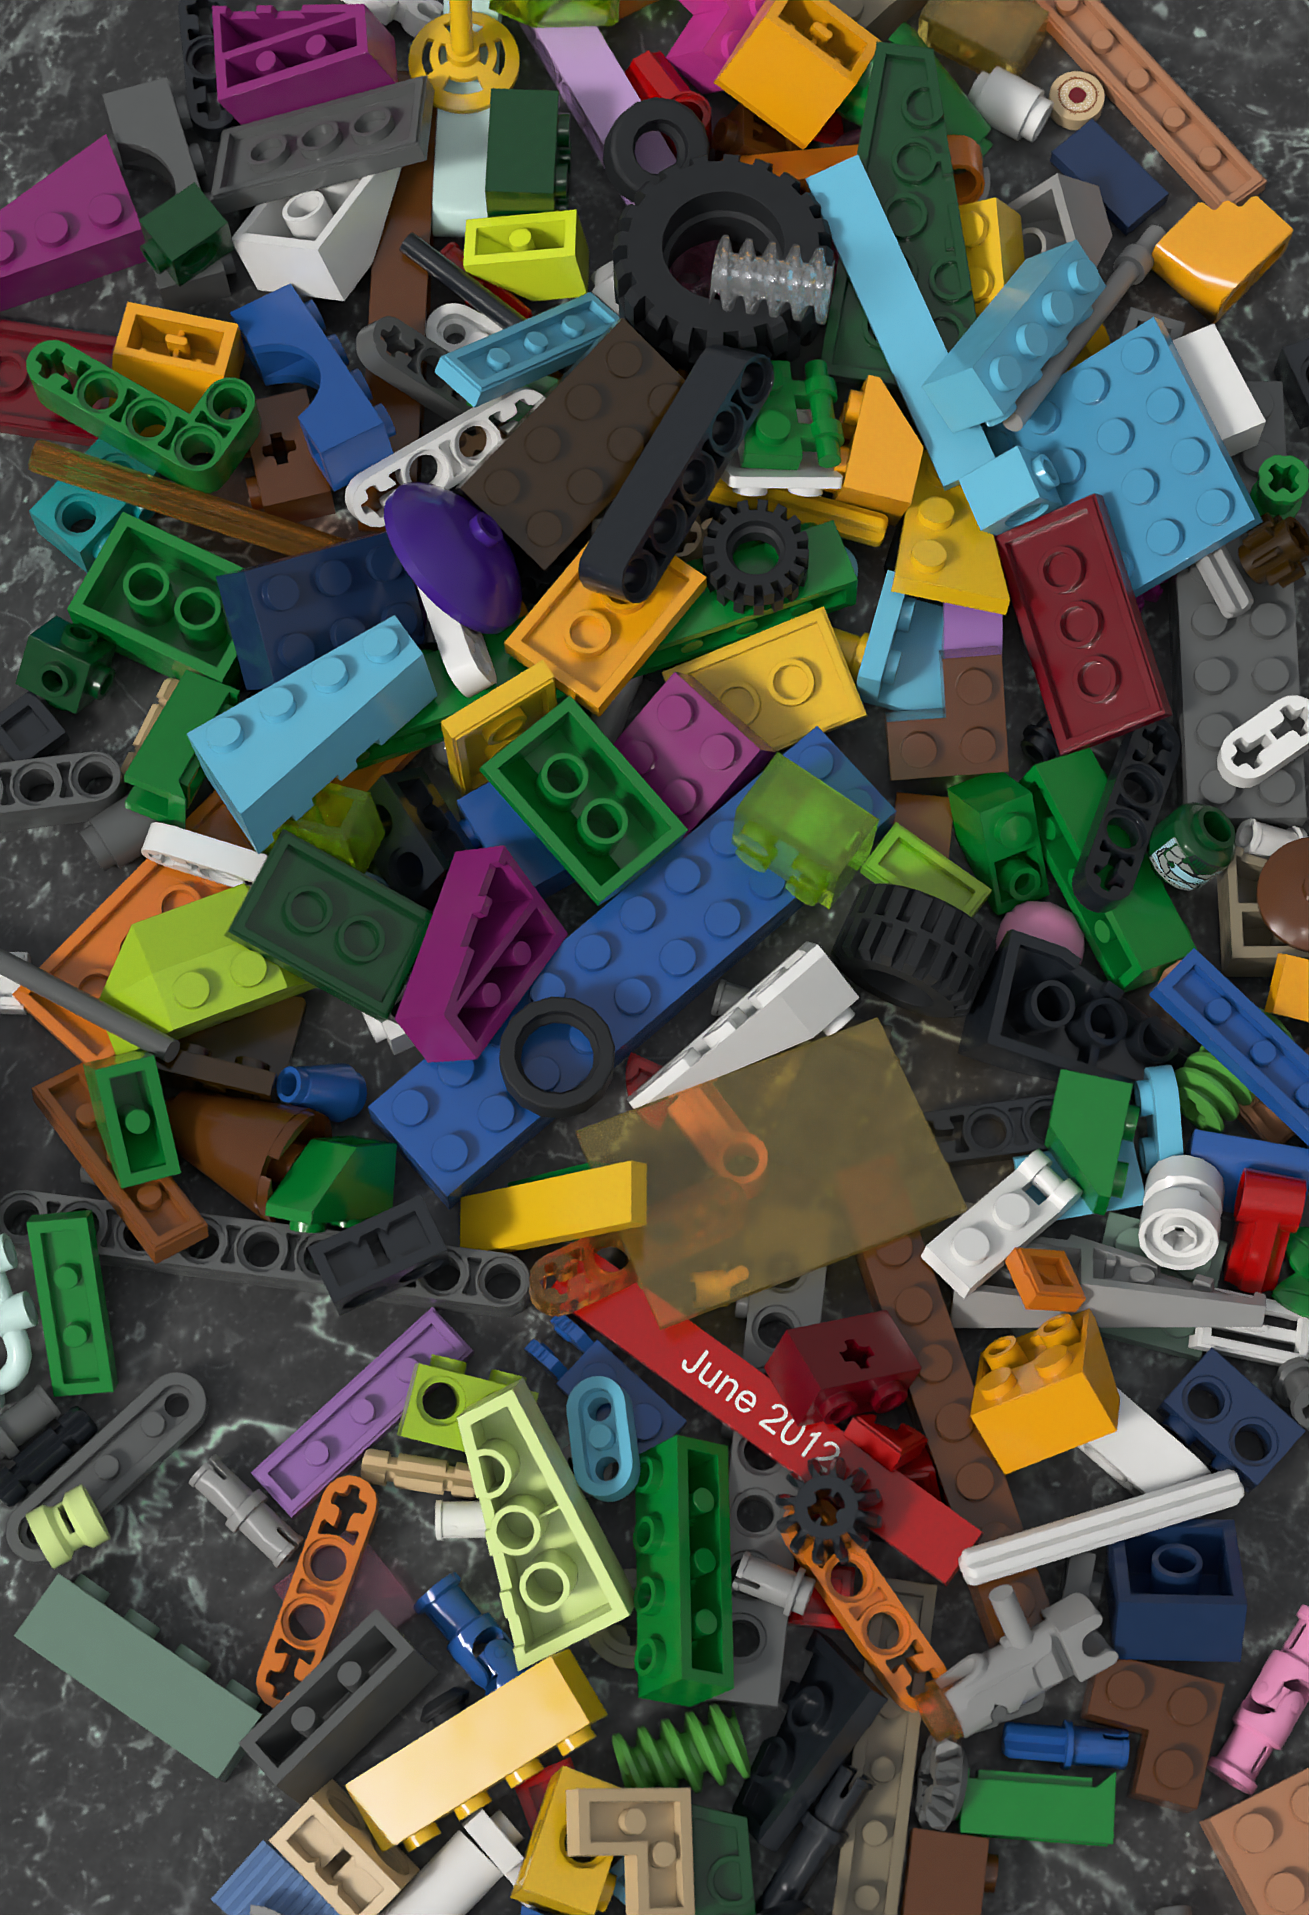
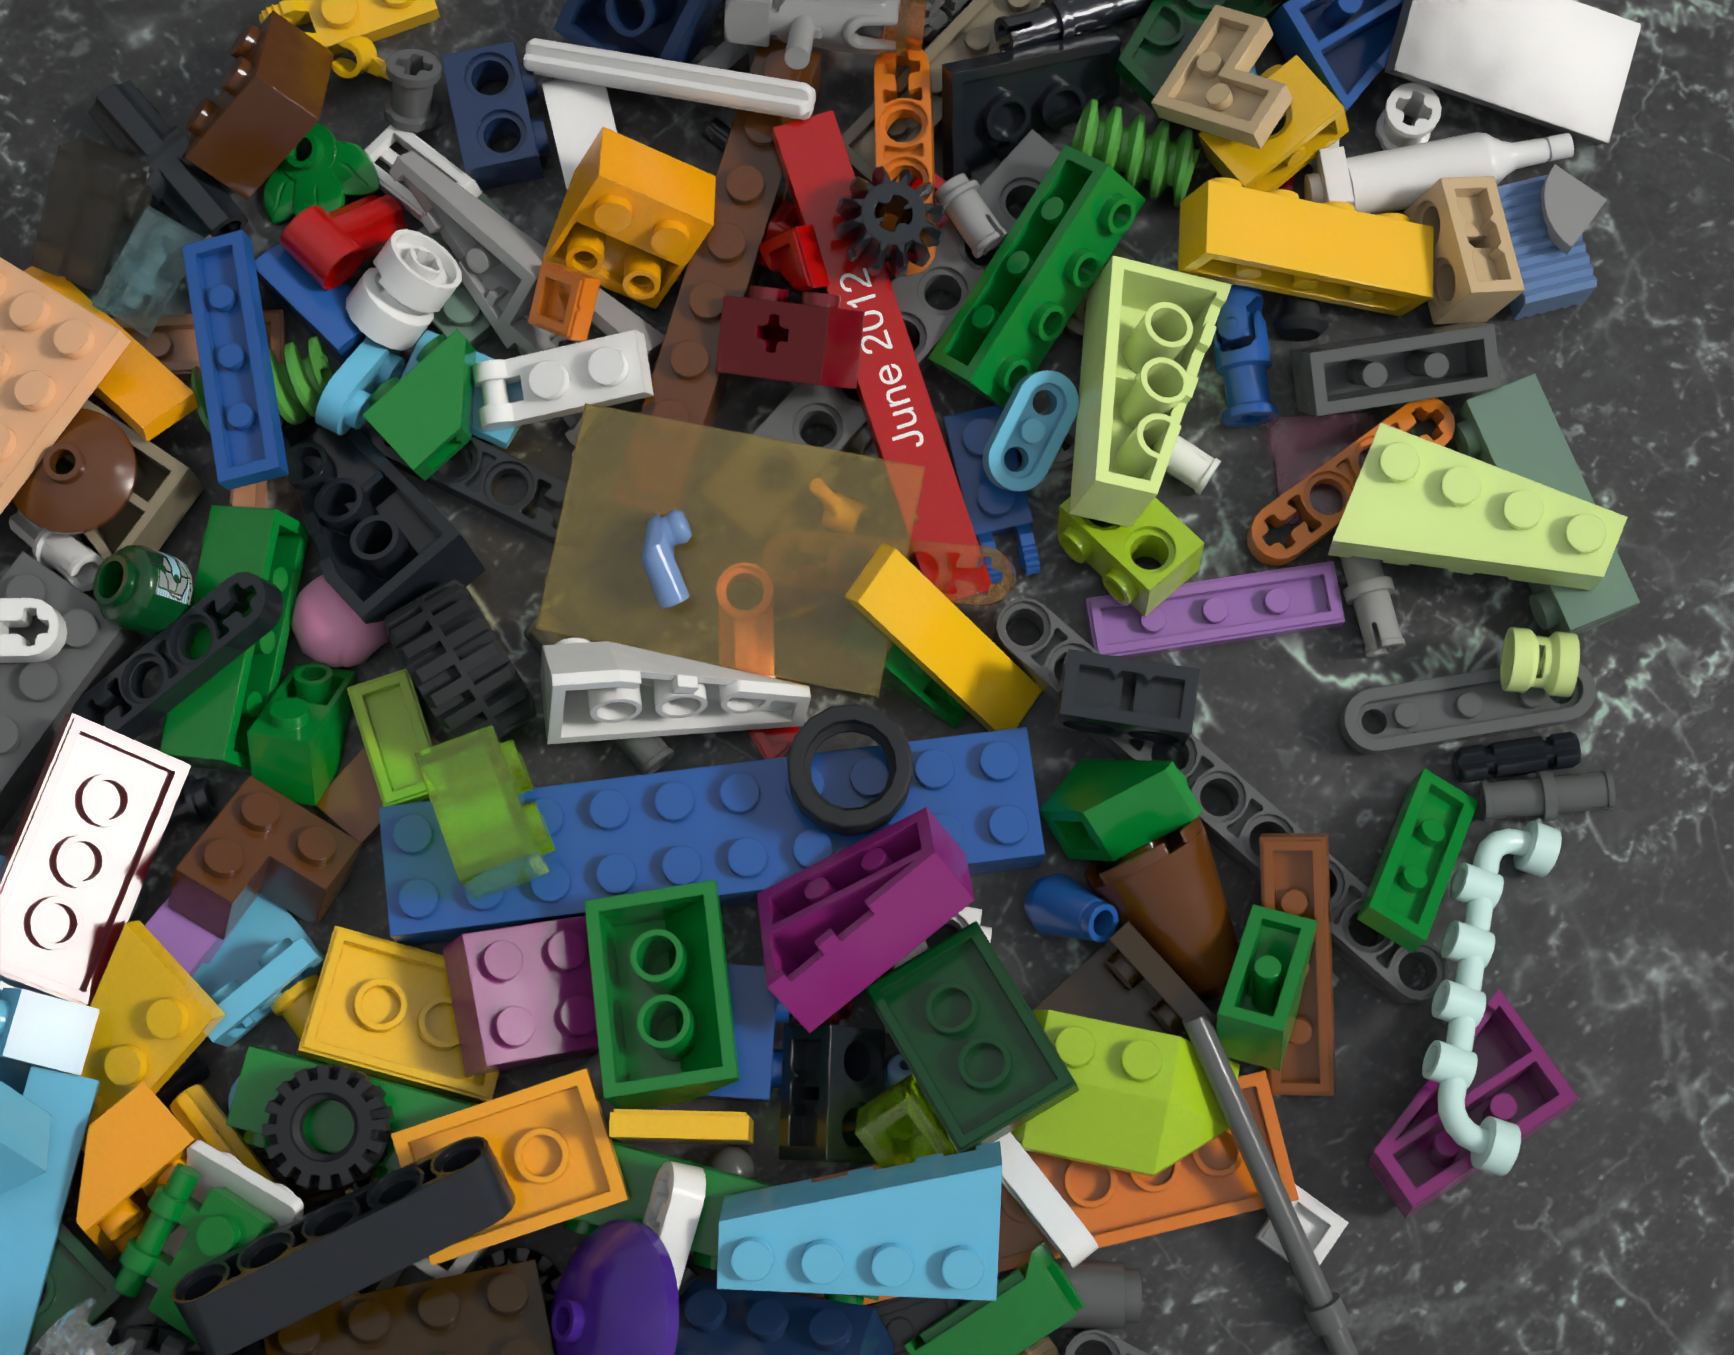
camera: 150 degrees left, 5 degrees up
(198, 1598) = (1471, 517): none -> yellowish green wedge
(417, 1473) = (1228, 554): tan axle -> none
(820, 1121) = (658, 556): none -> medium blue arm

